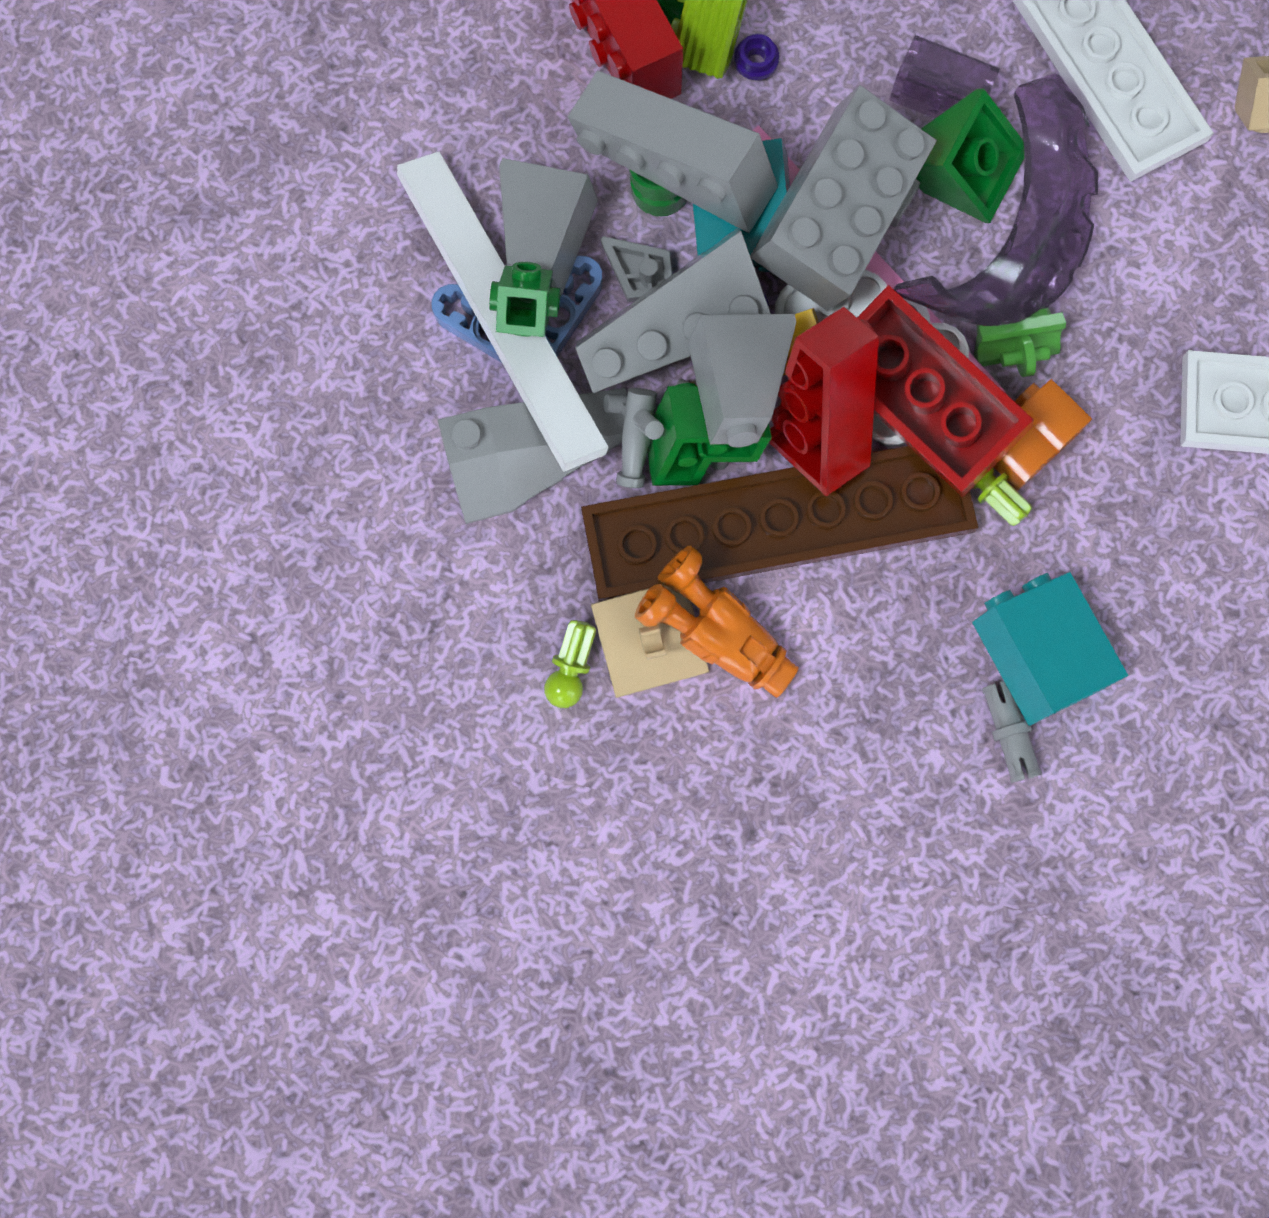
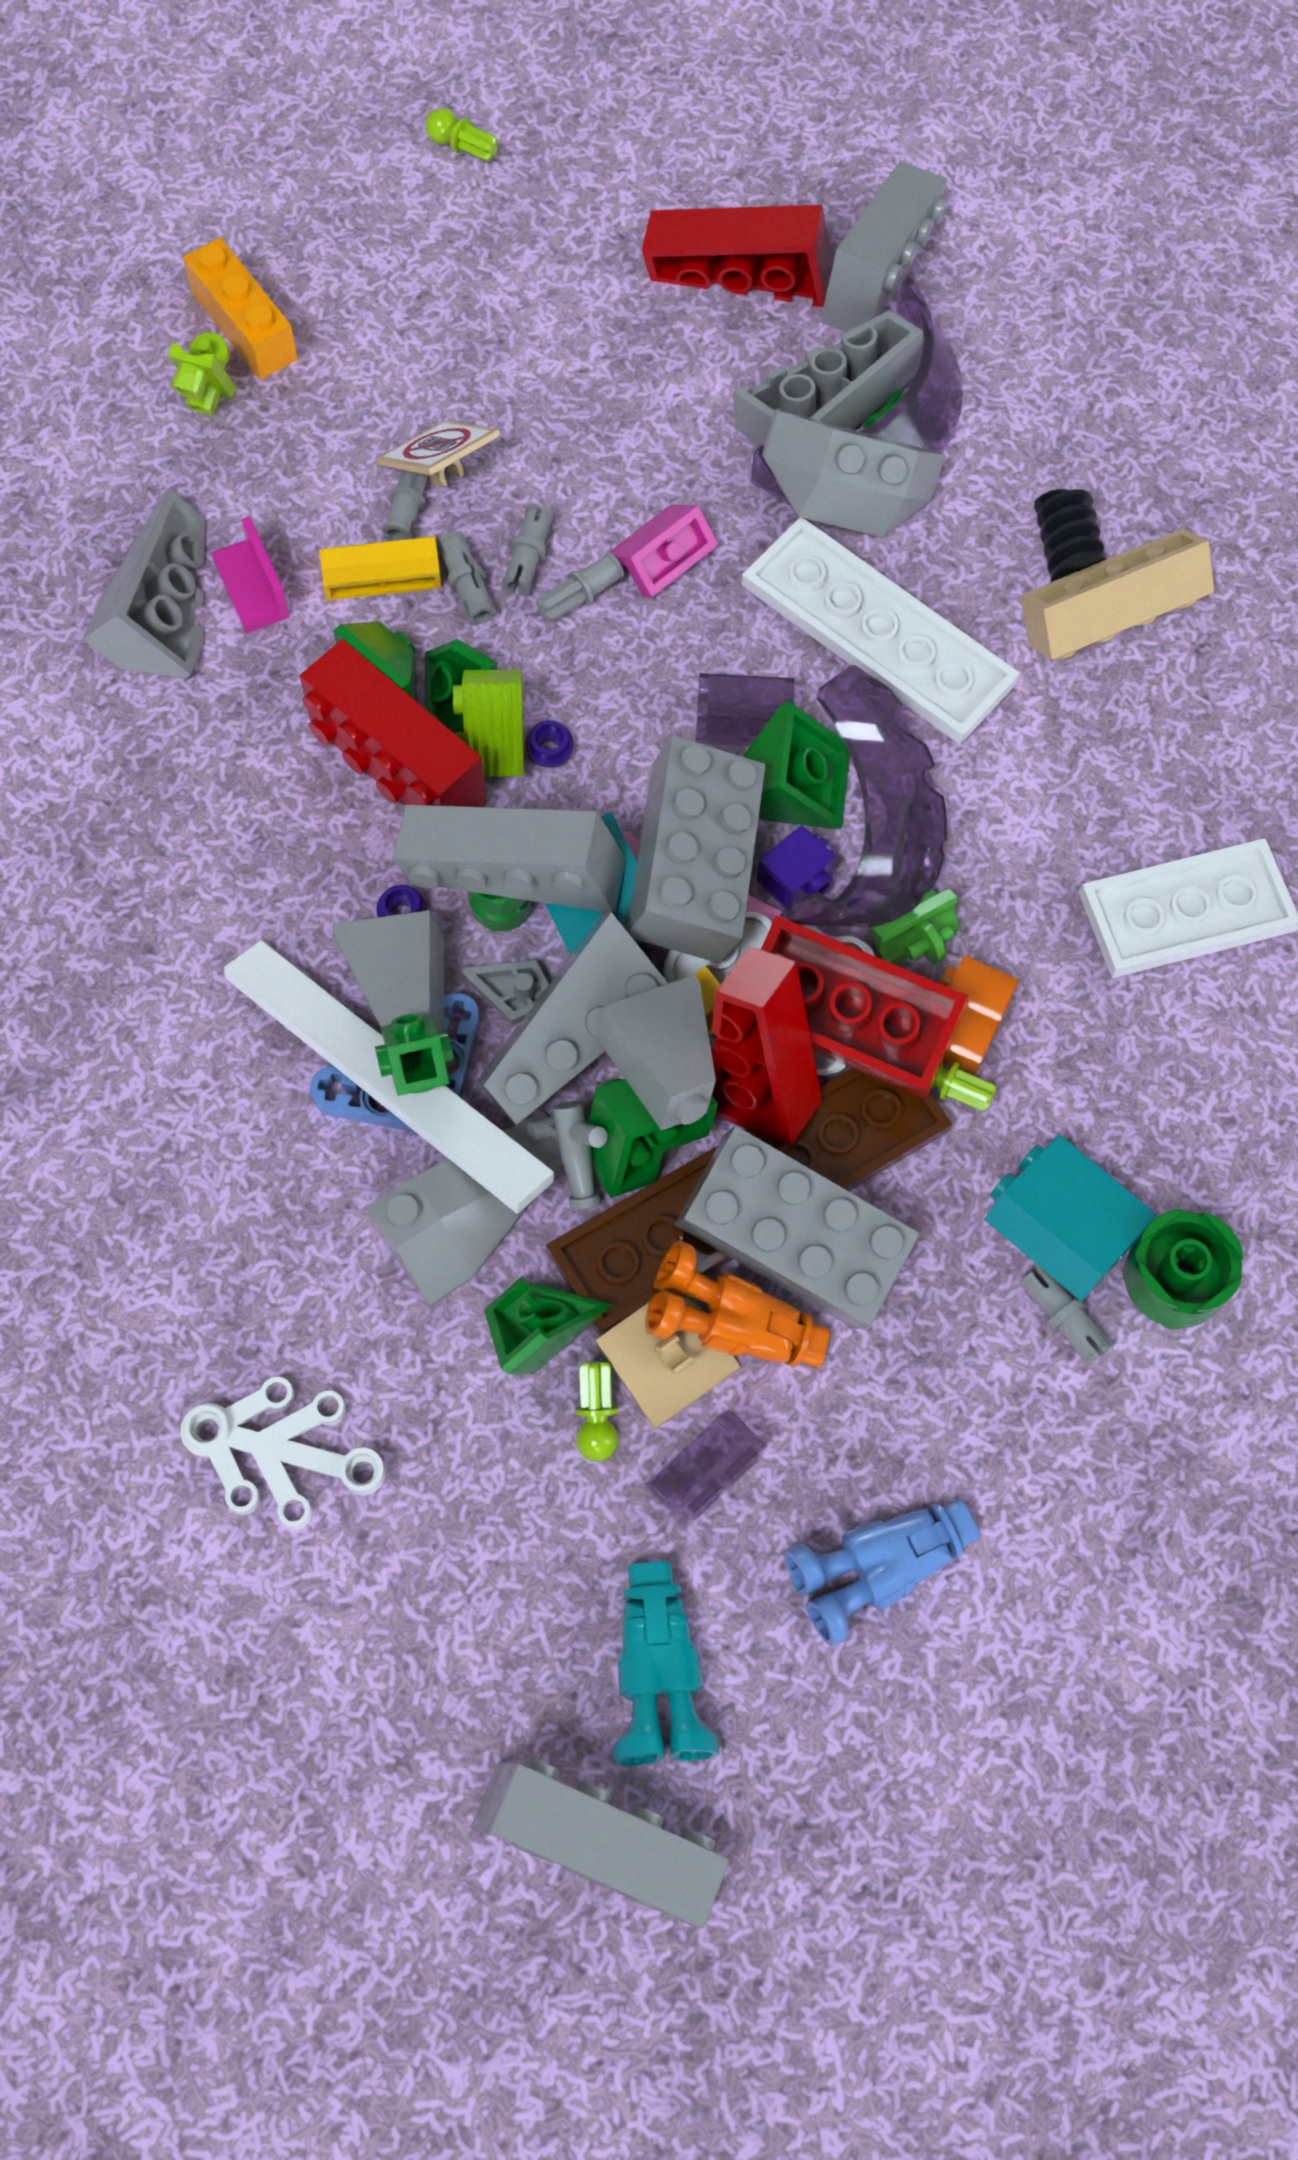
camera: 25 degrees left, 10 degrees down
(291, 596) = (274, 1446): none -> white plant
(435, 1025) = (602, 1841): none -> light grey wedge
(539, 893) = (656, 1662): none -> teal piece
(545, 572) = (536, 1323): none -> green slope
(571, 152) = (398, 896): none -> dark purple plate
(645, 748) = (707, 1468): none -> clear purple hinge
(769, 883) = (889, 1563): none -> medium blue piece
(801, 572) = (797, 1228): none -> light grey brick
(934, 246) = (797, 867): none -> dark purple brick
(1131, 702) = (1175, 1296): none -> green brick

